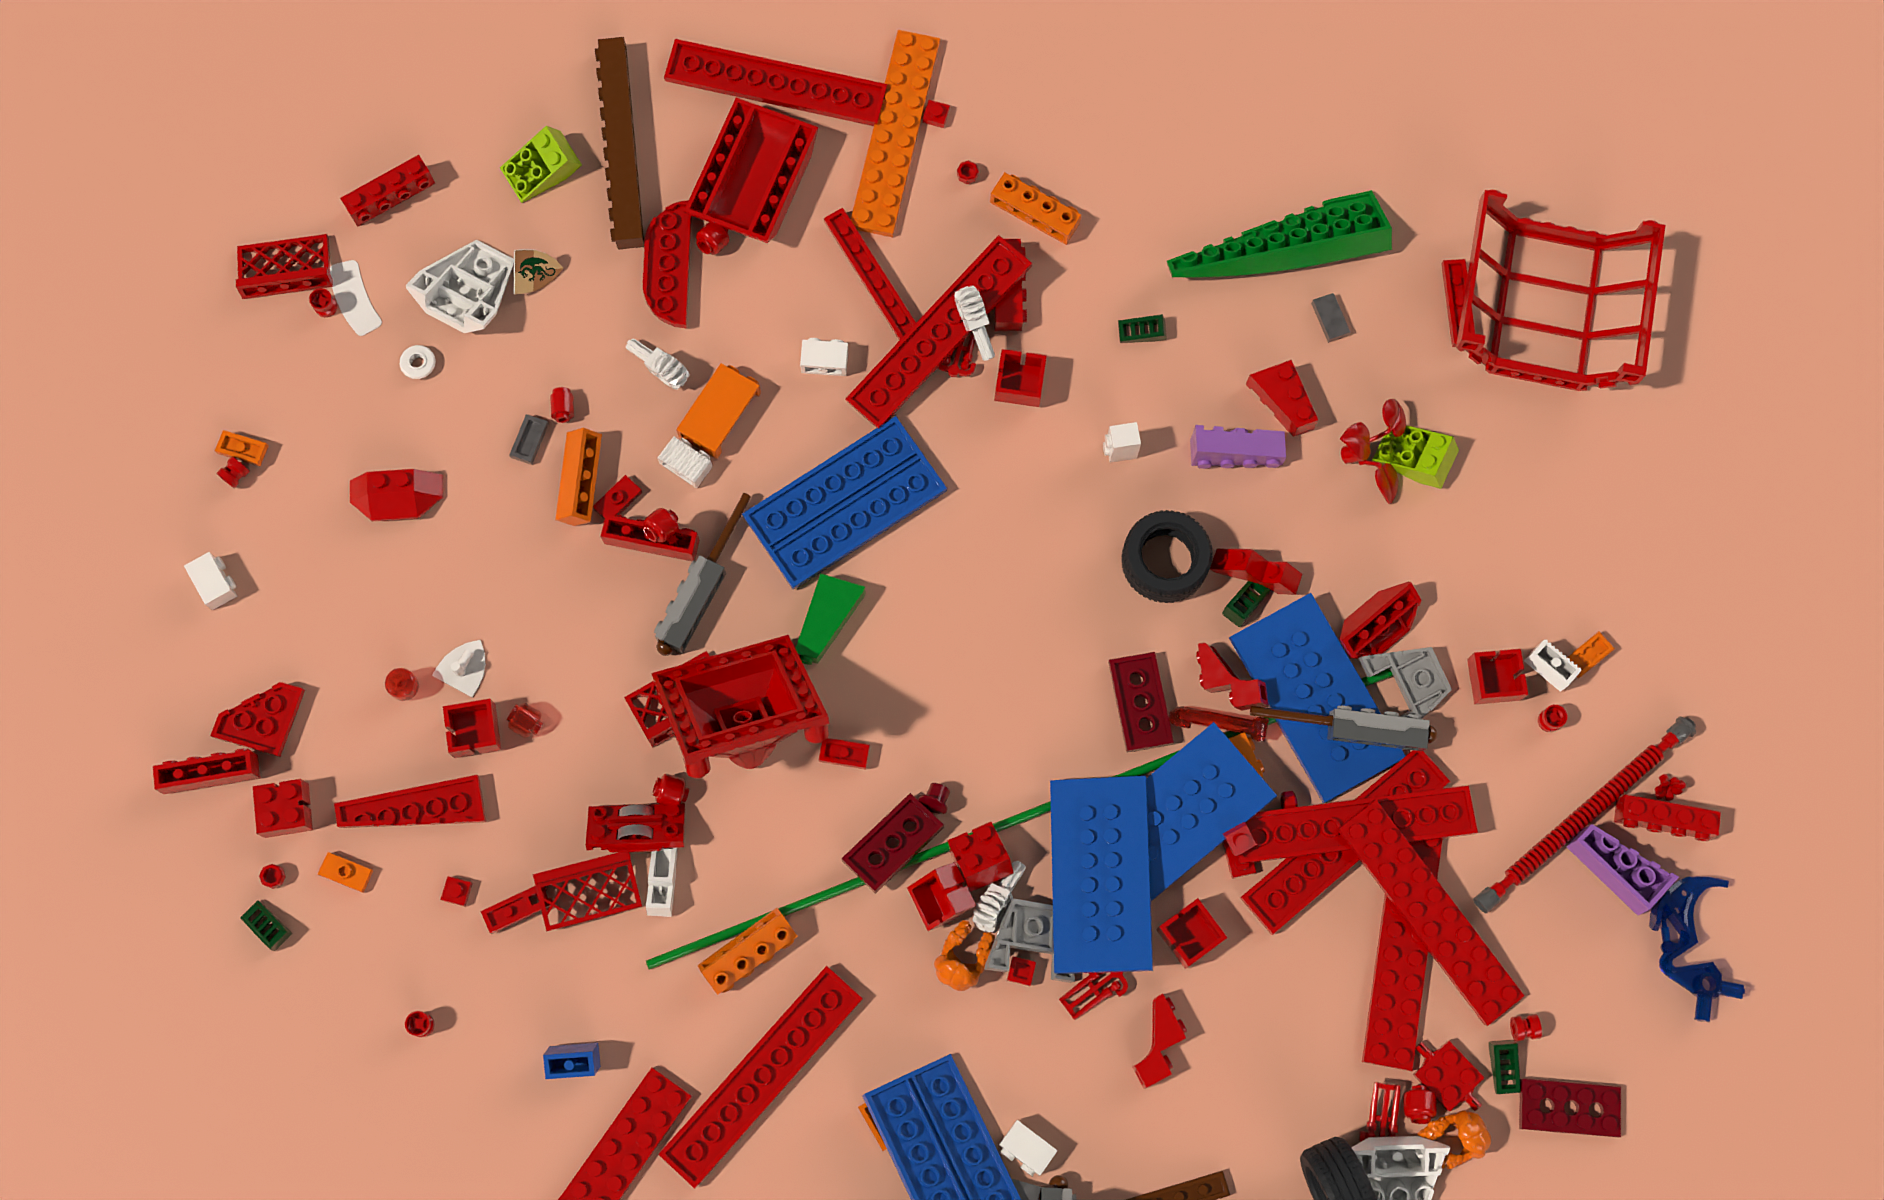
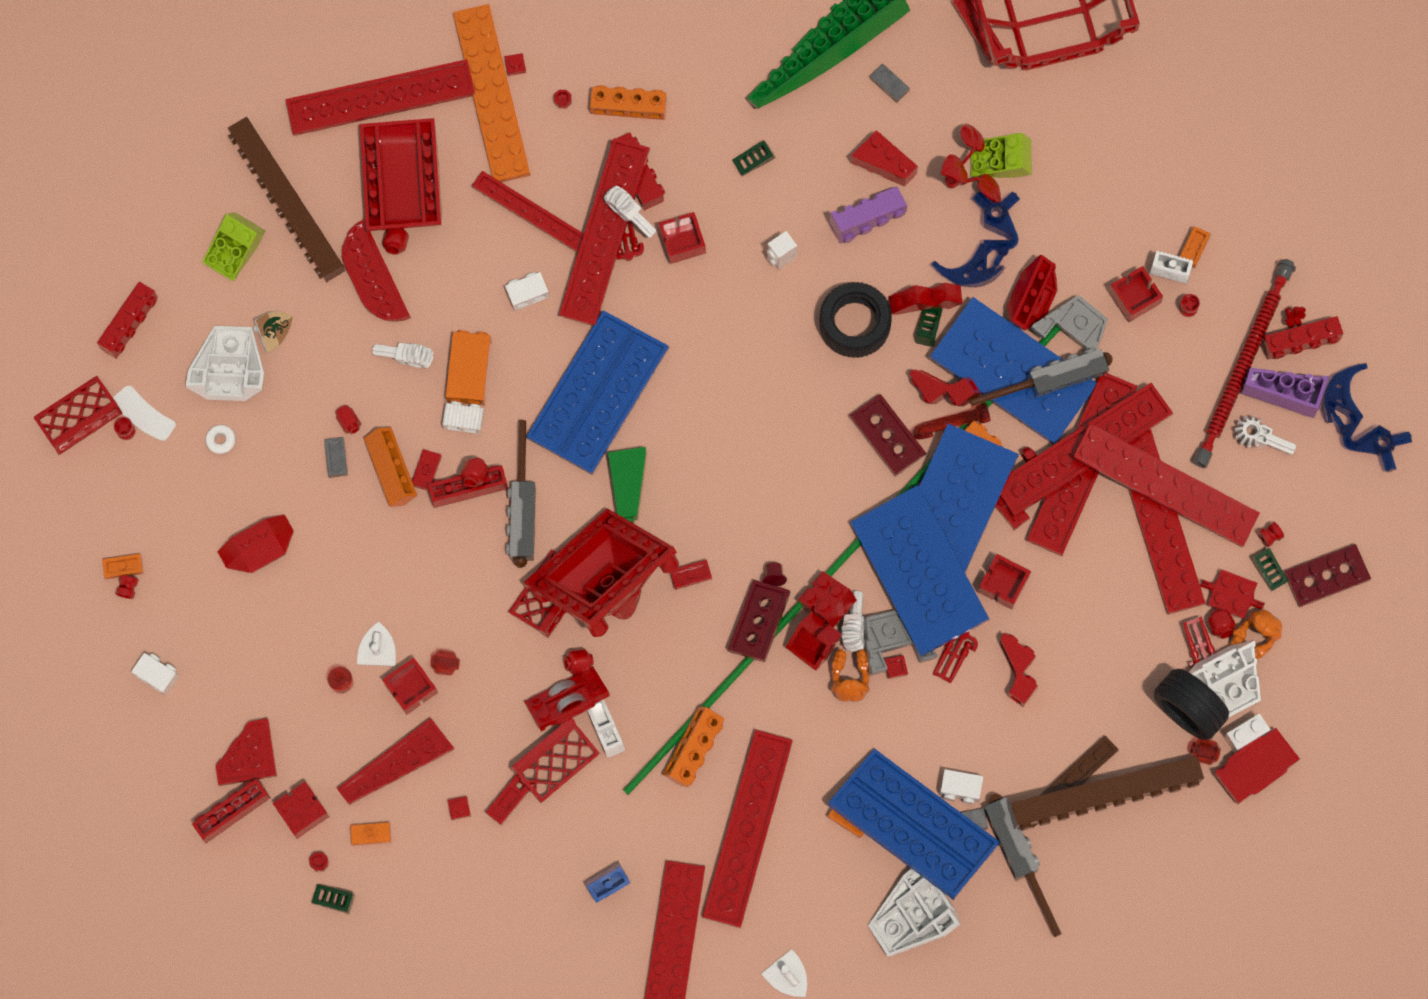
camera: 20 degrees left, 0 degrees up
(415, 1024) = (481, 909): red wheel -> none
(1239, 839) = (1006, 497): red plate -> none
(1379, 528) = (1000, 225): none -> clear blue piece
(1568, 908) = (1262, 436): none -> white gear

